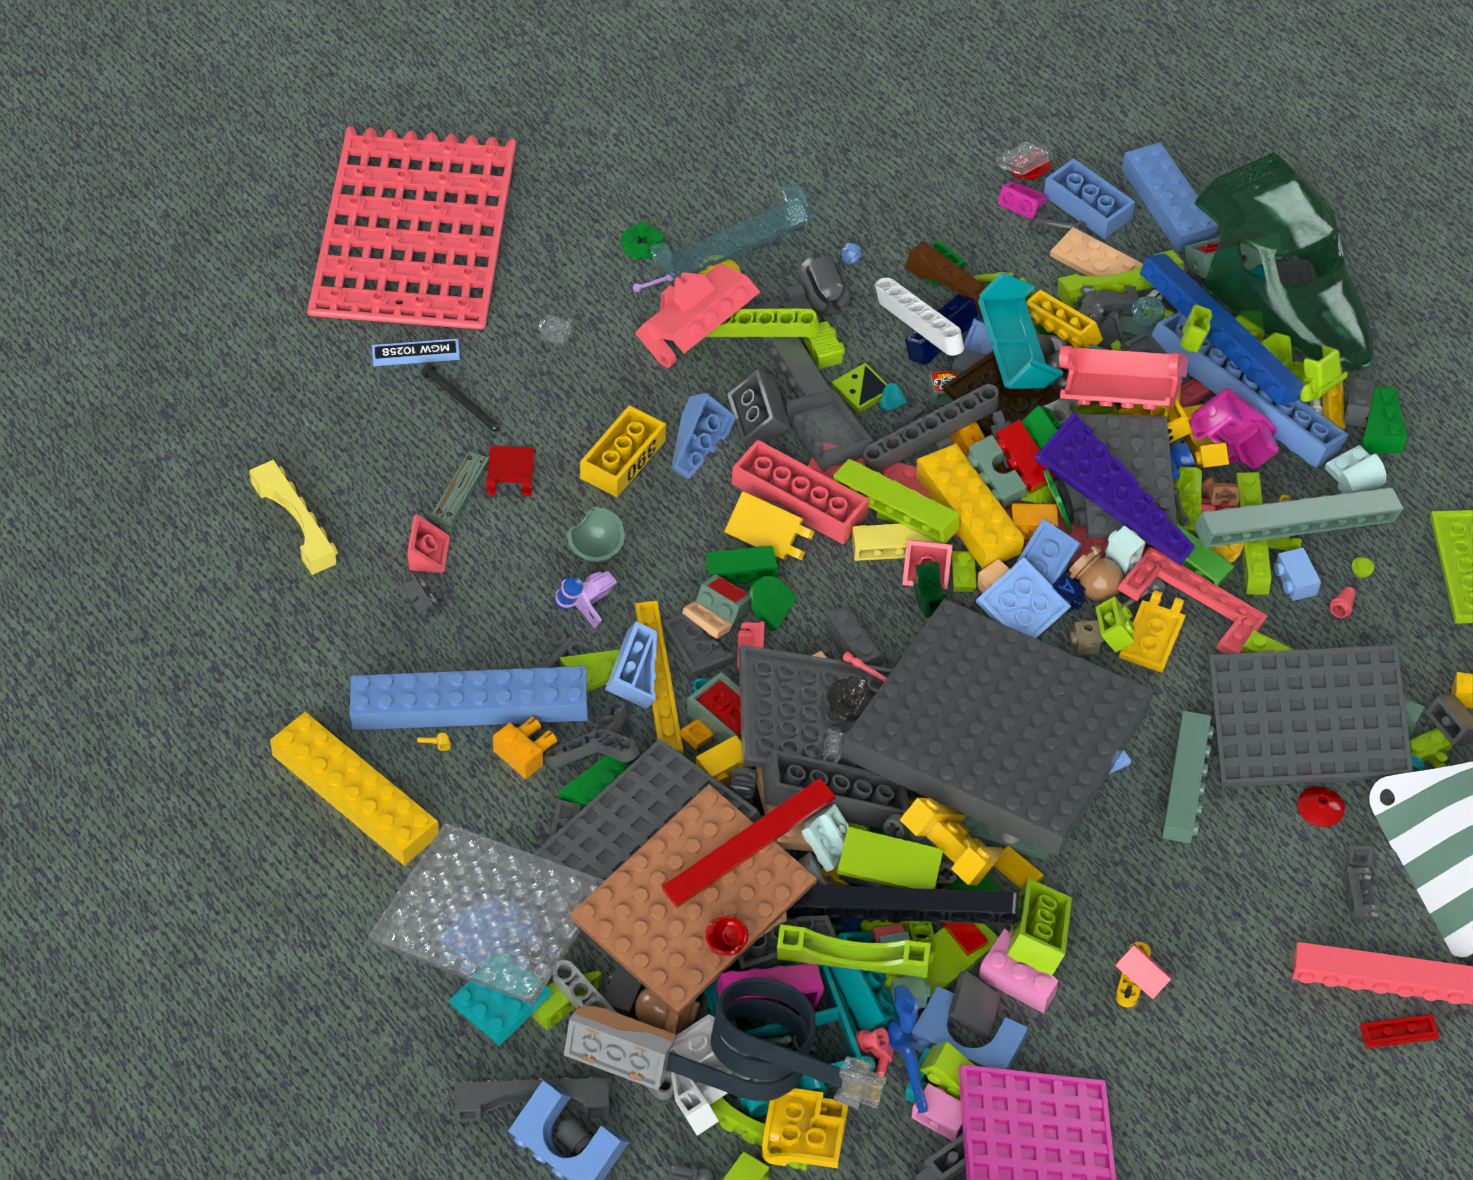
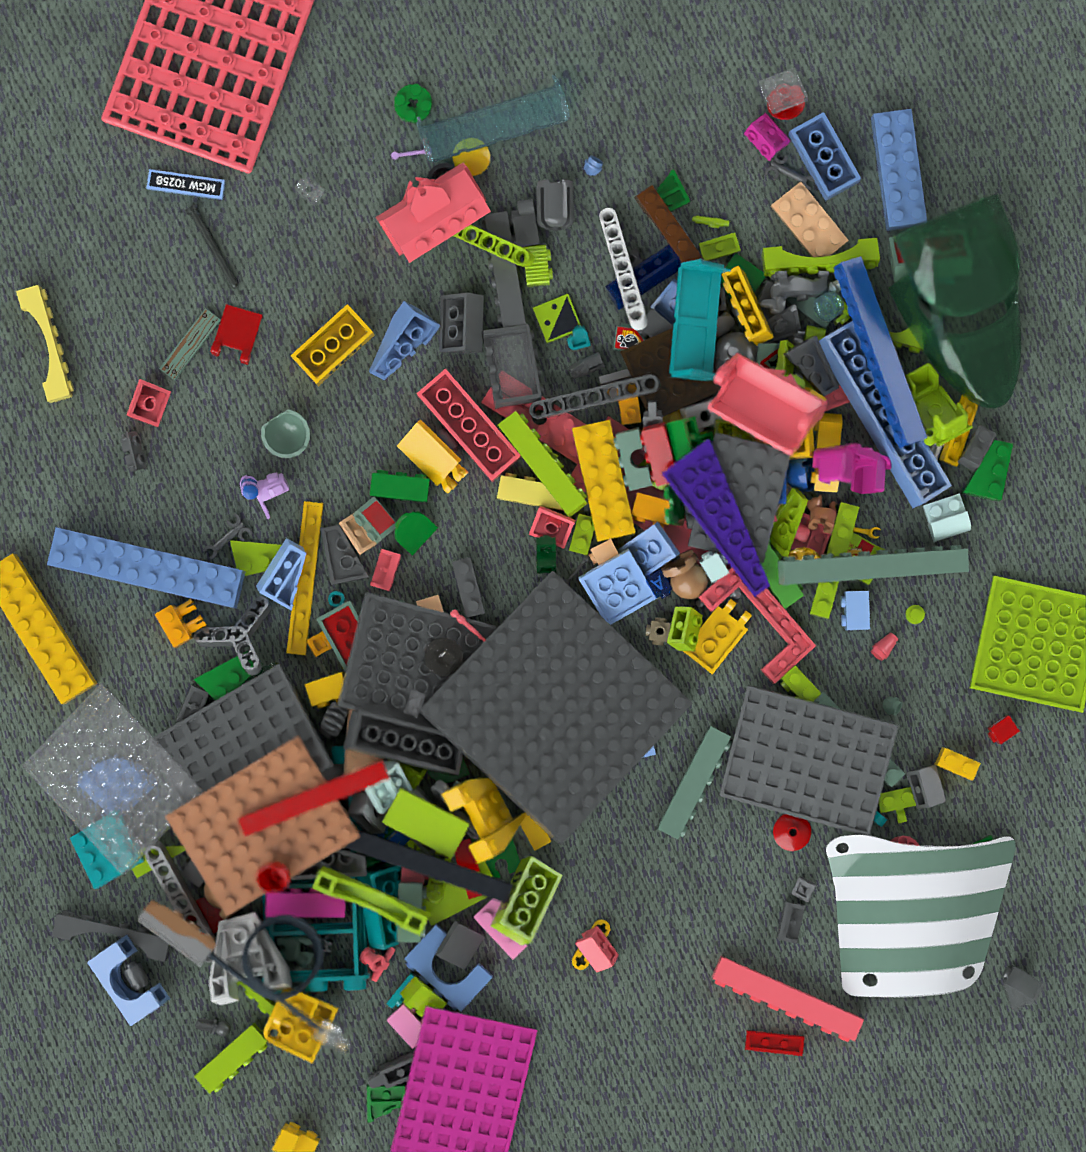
camera: 20 degrees right, 35 degrees up
(442, 741) = (118, 597): yellow hand -> none
(901, 1041) = (395, 961): blue animal -> none
(1184, 520) = (778, 542): dark grey hinge -> none
(1196, 328) = (852, 359): lime brick -> none

